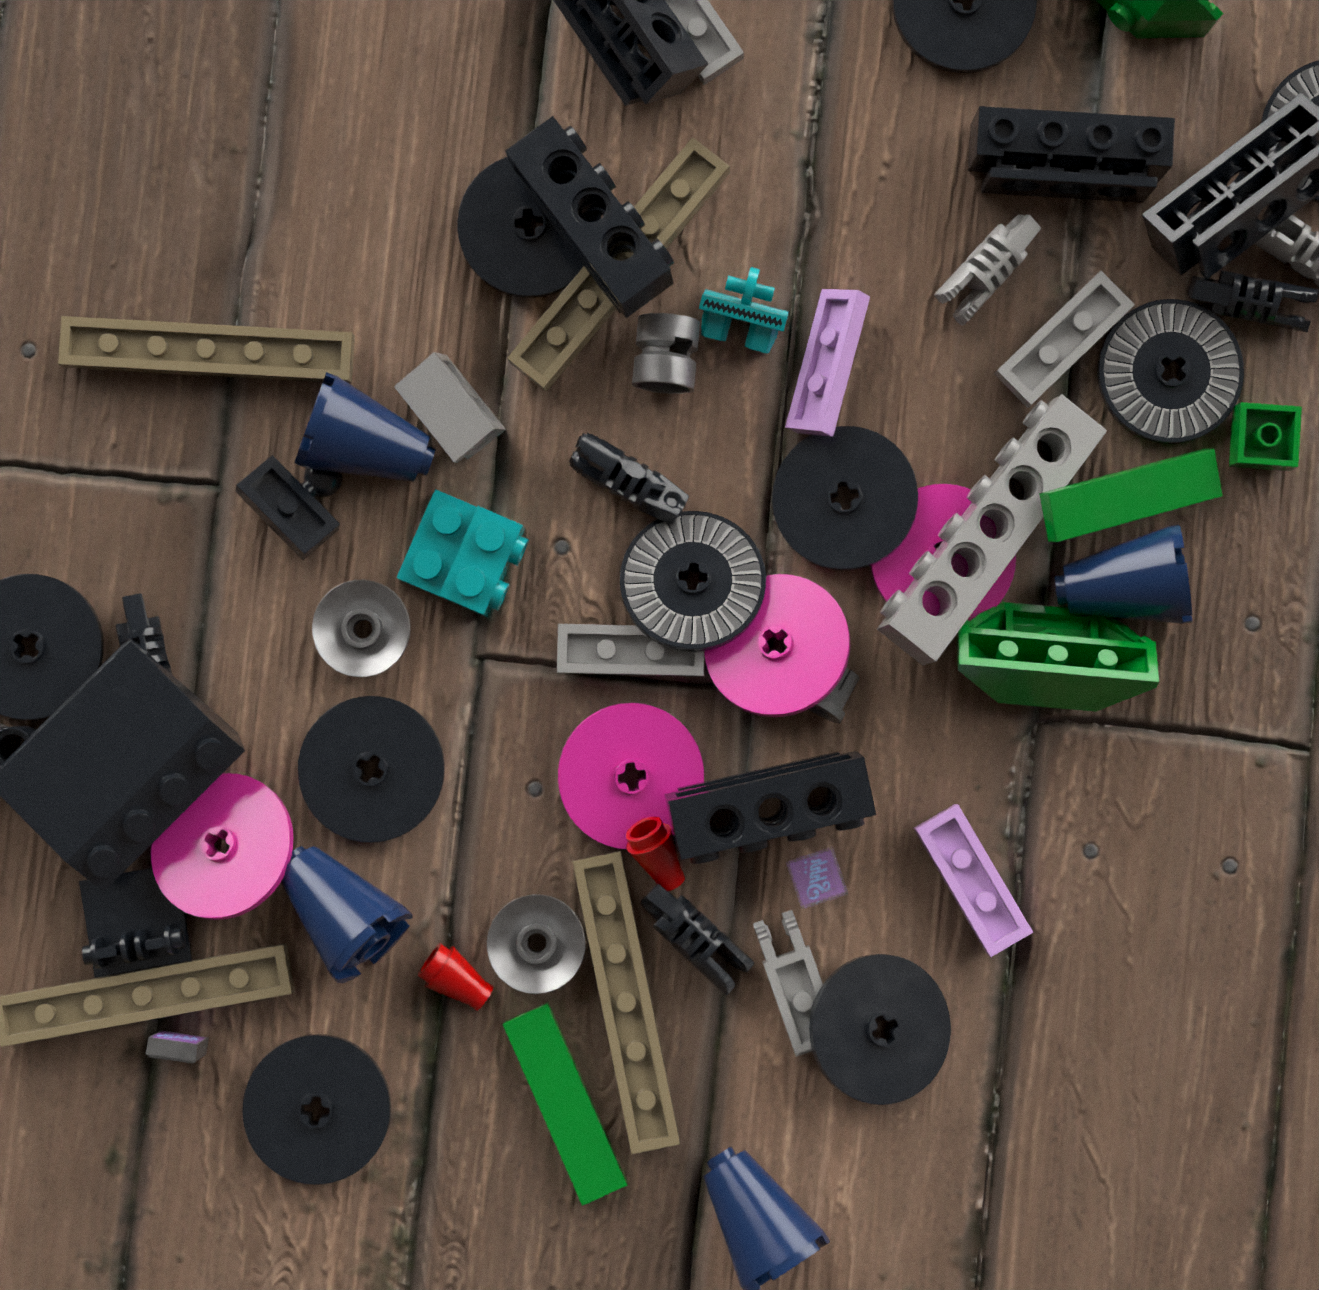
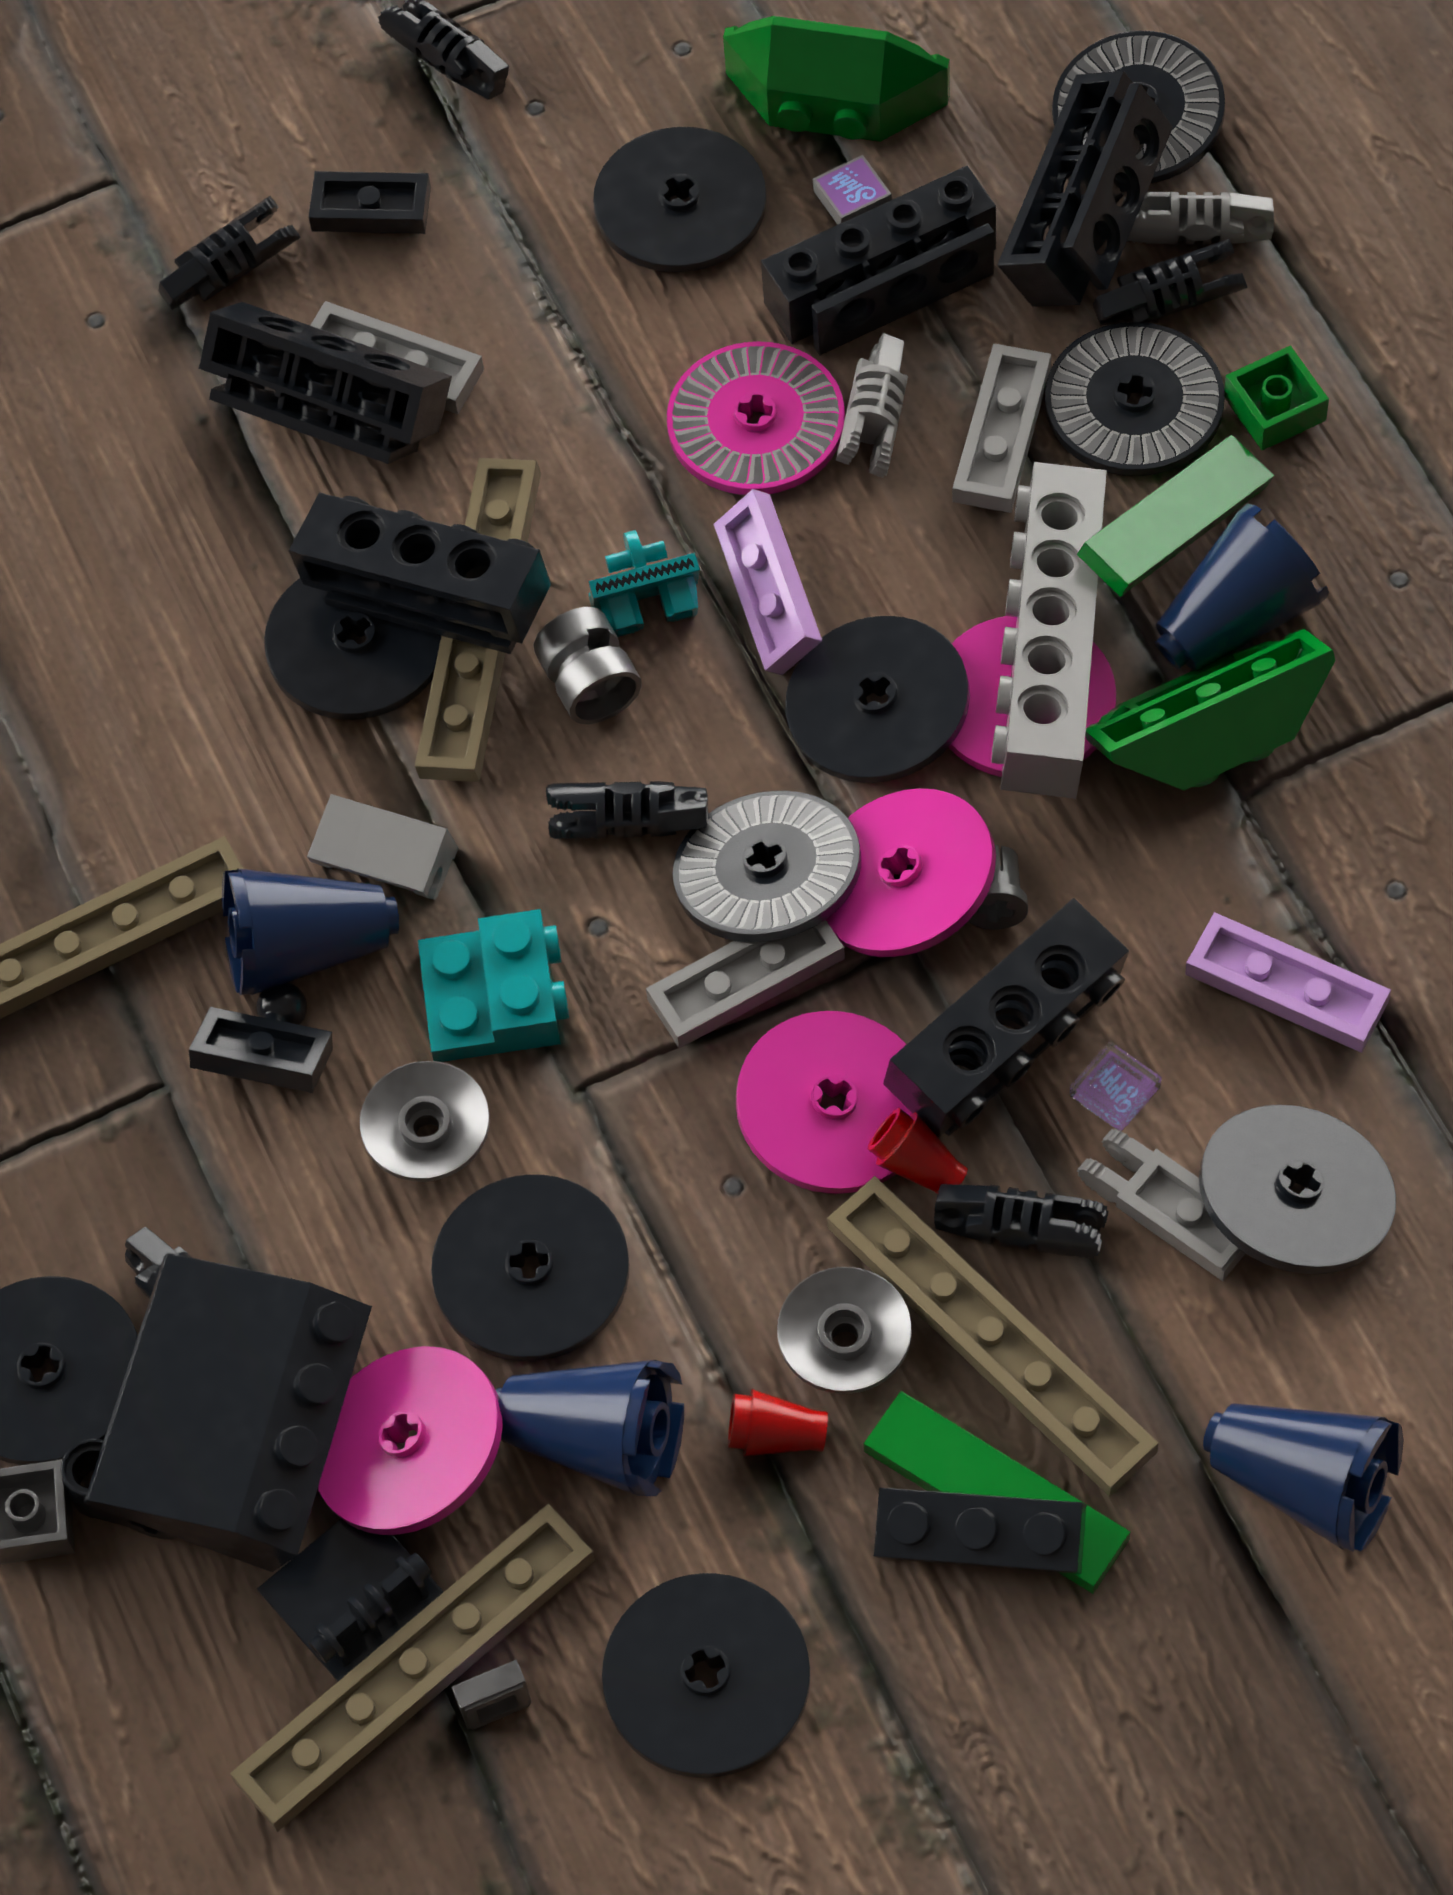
camera: 25 degrees left, 25 degrees down
(535, 1130) = (980, 1530): none -> black plate
(905, 257) = (789, 442): none -> piece
(1087, 73) = (850, 190): none -> tile

